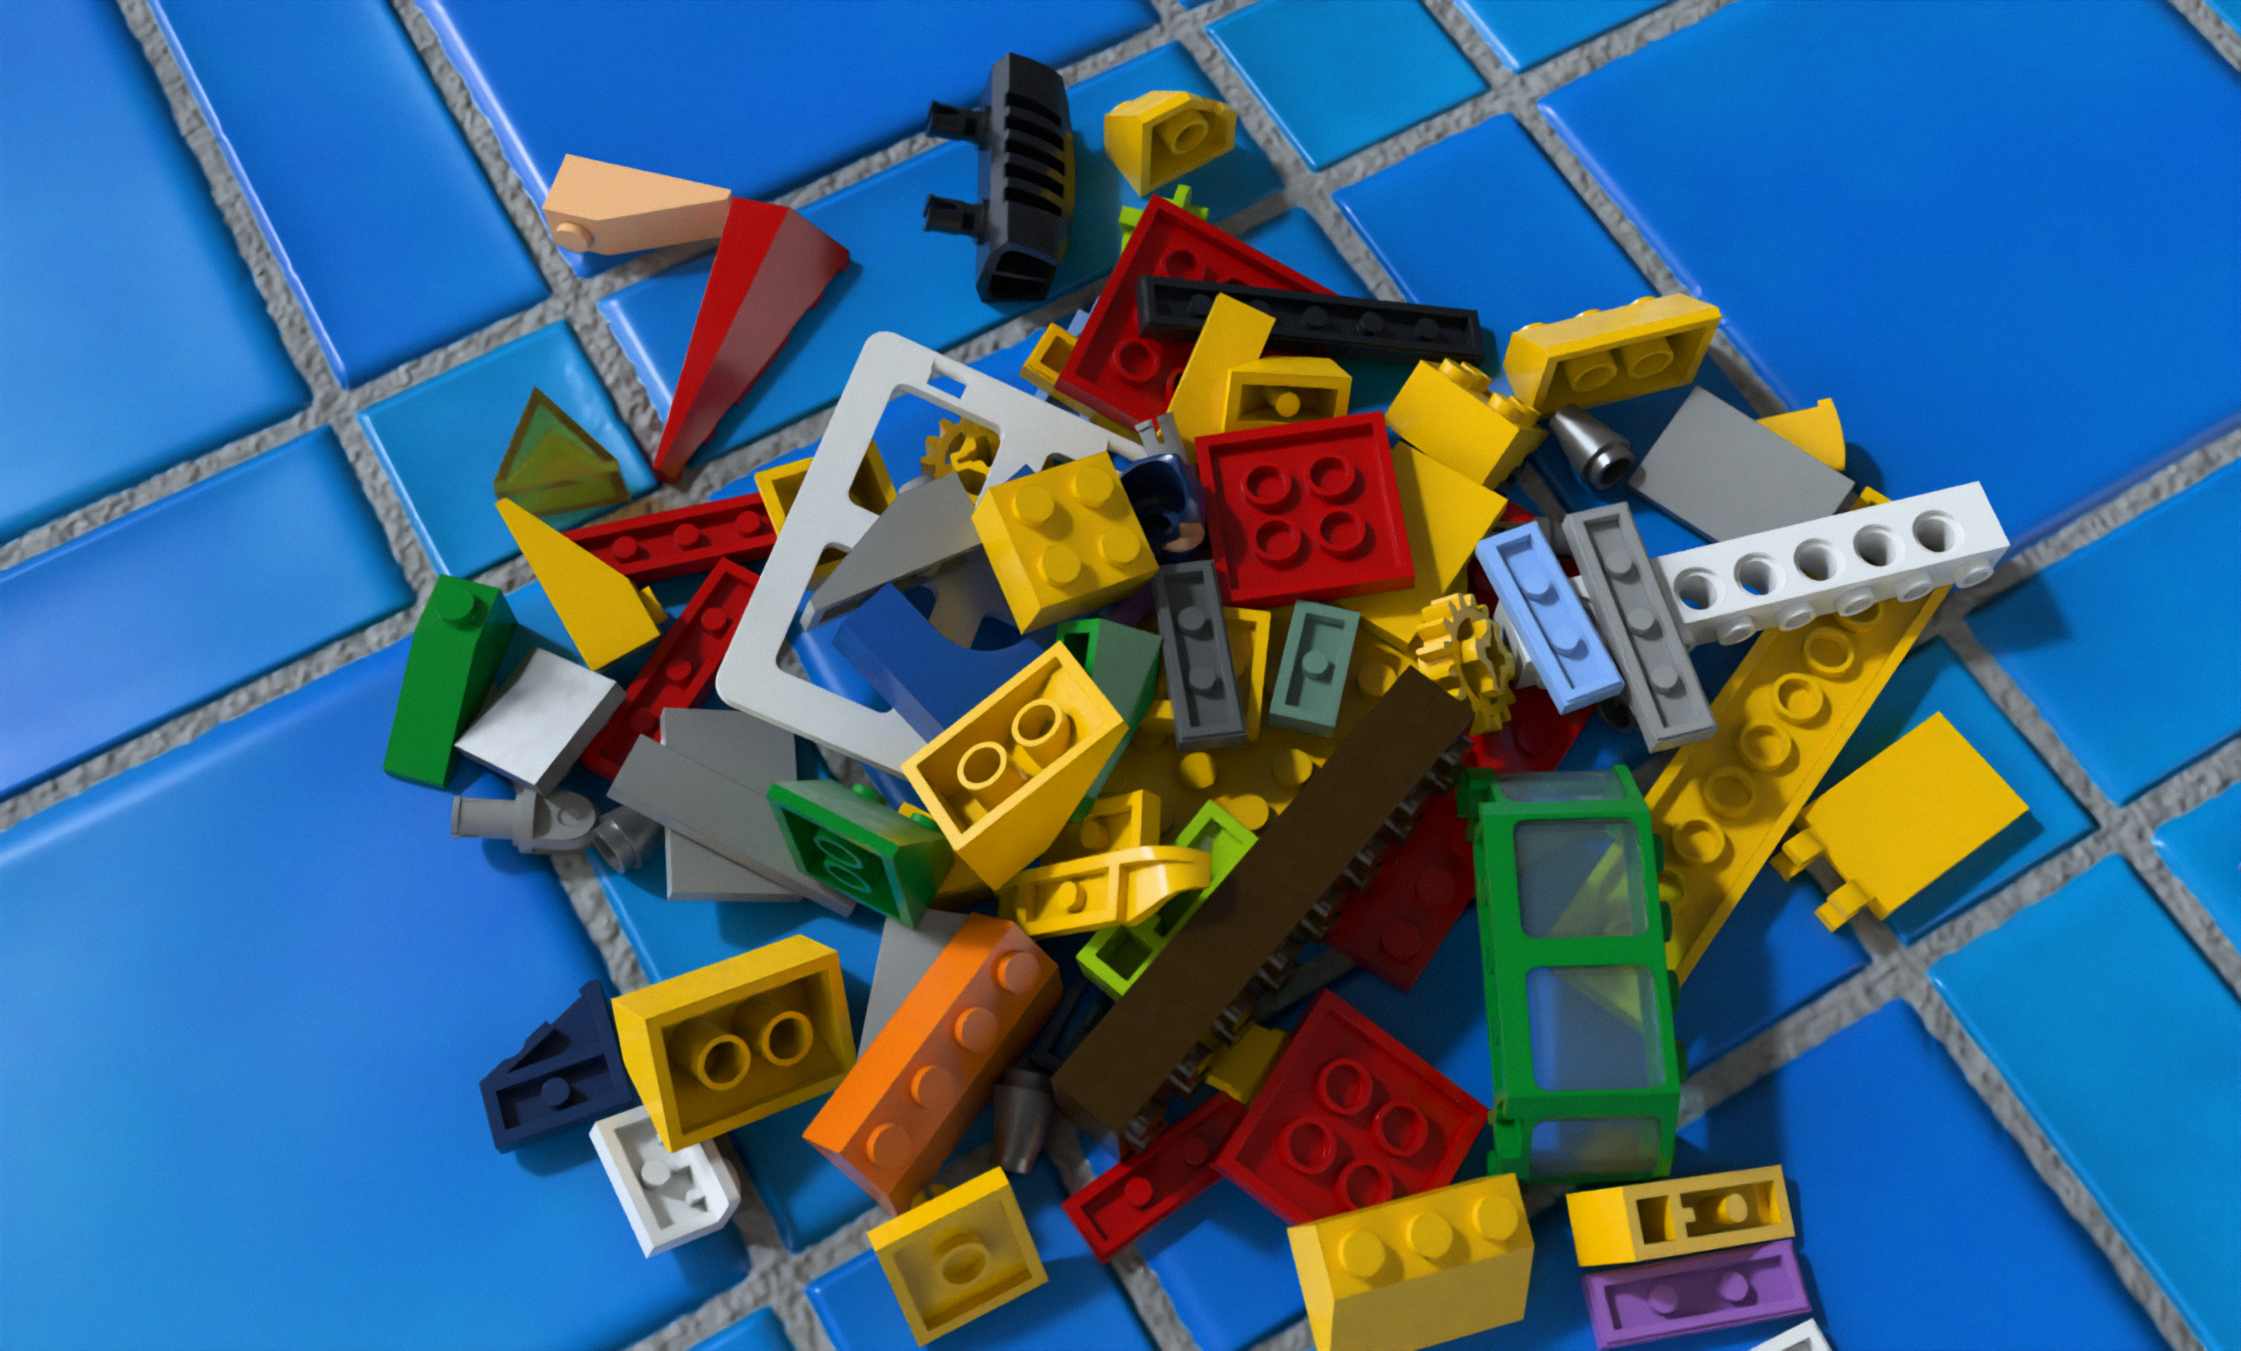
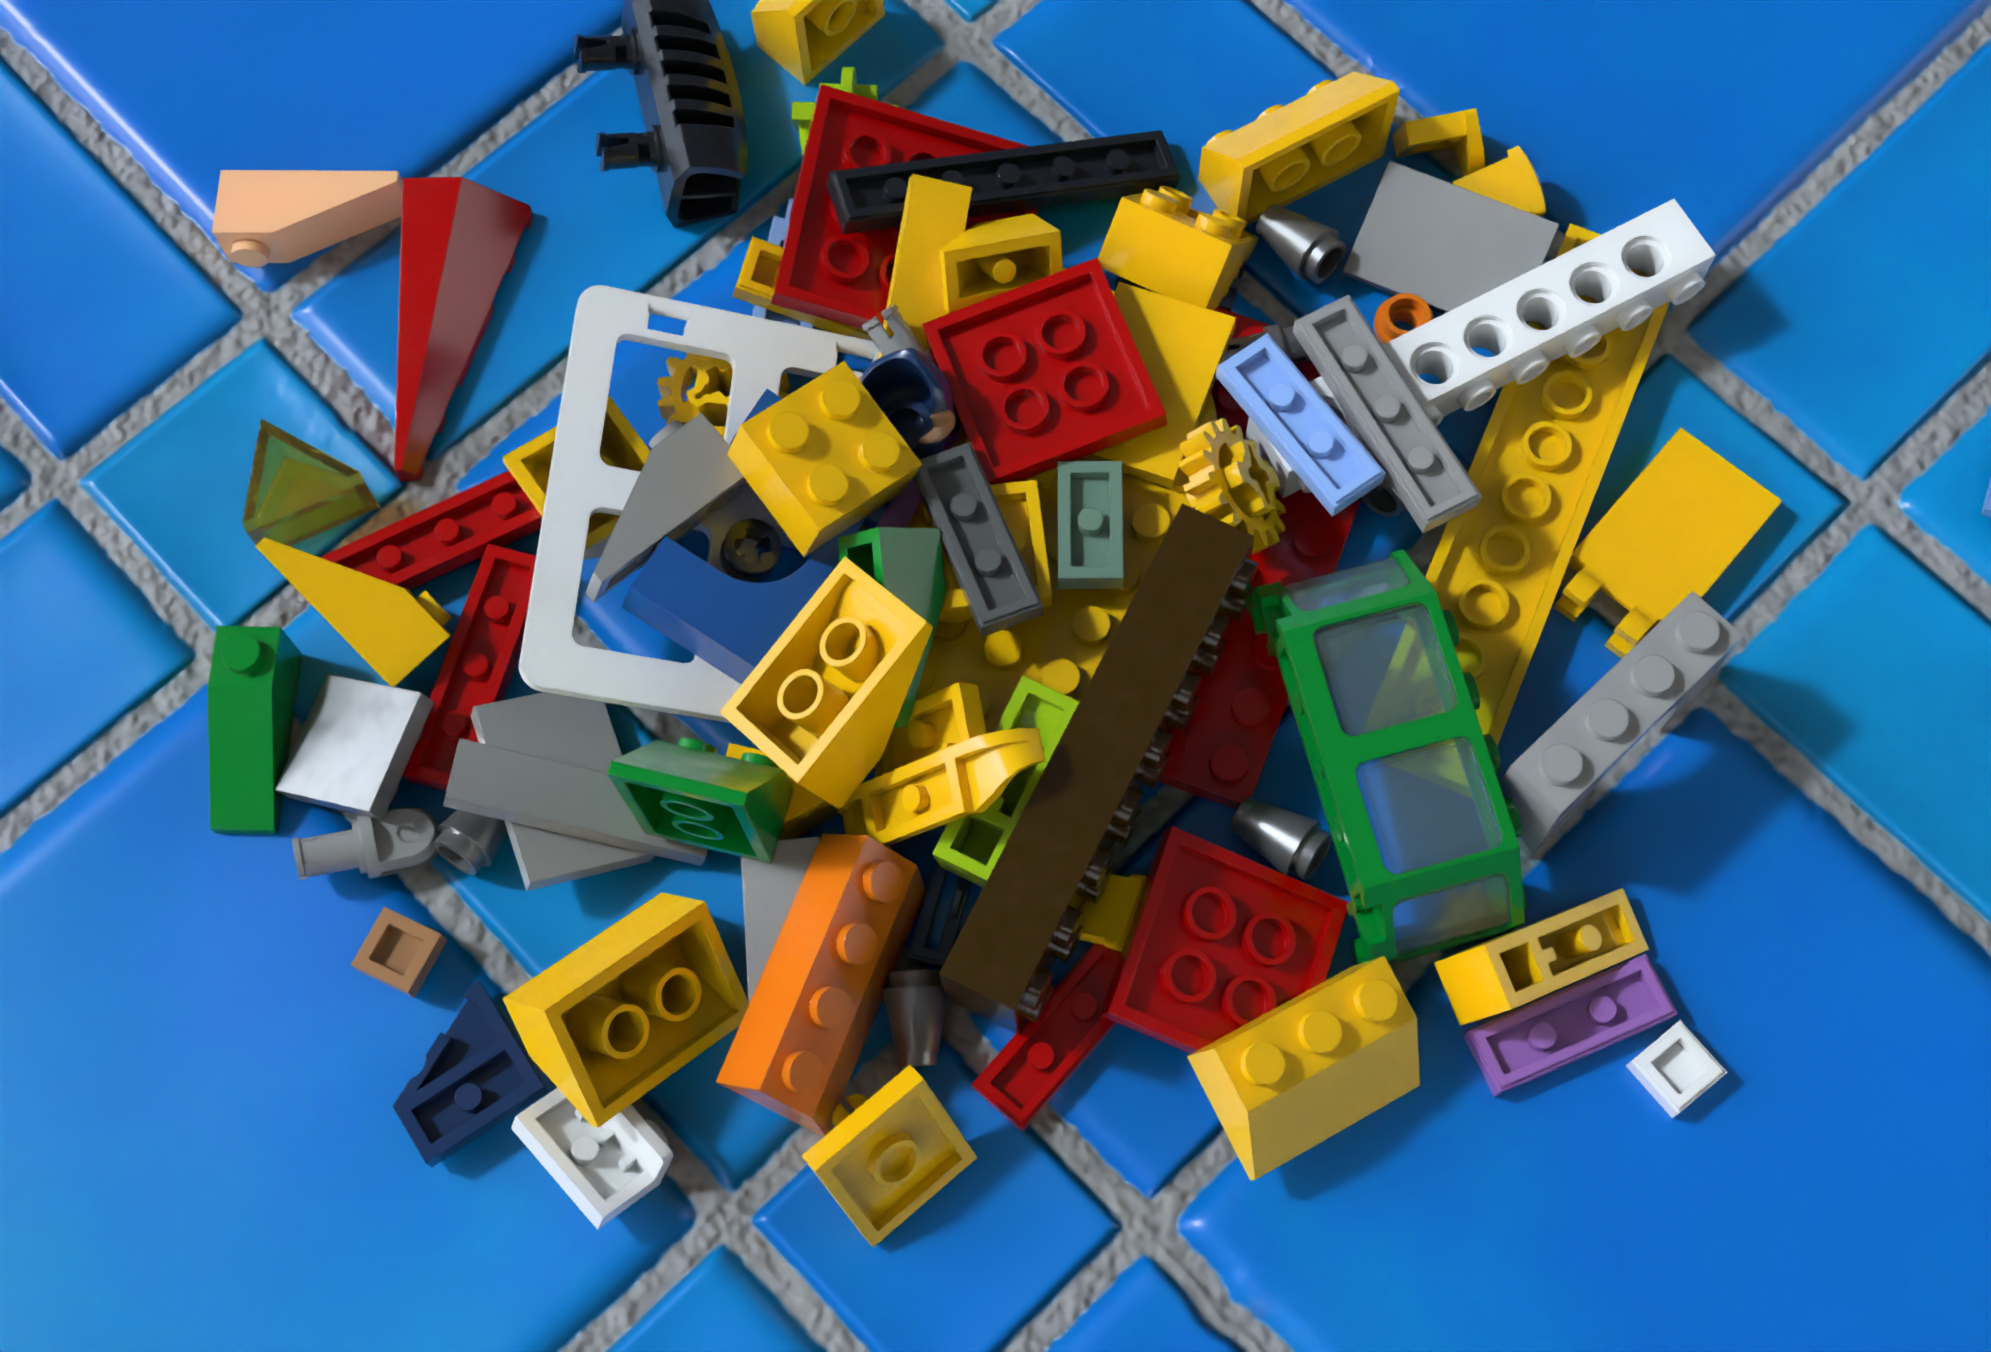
camera: 10 degrees left, 5 degrees up
(528, 932) = (399, 952): none -> medium nougat plate
(990, 608) = (765, 536): none -> black bush
(1440, 1030) = (1282, 837): none -> flat silver cone
(1675, 531) = (1401, 307): none -> orange plate
(1756, 370) = (1451, 130): none -> yellow tile
(1836, 966) = (1611, 717): none -> light grey arch

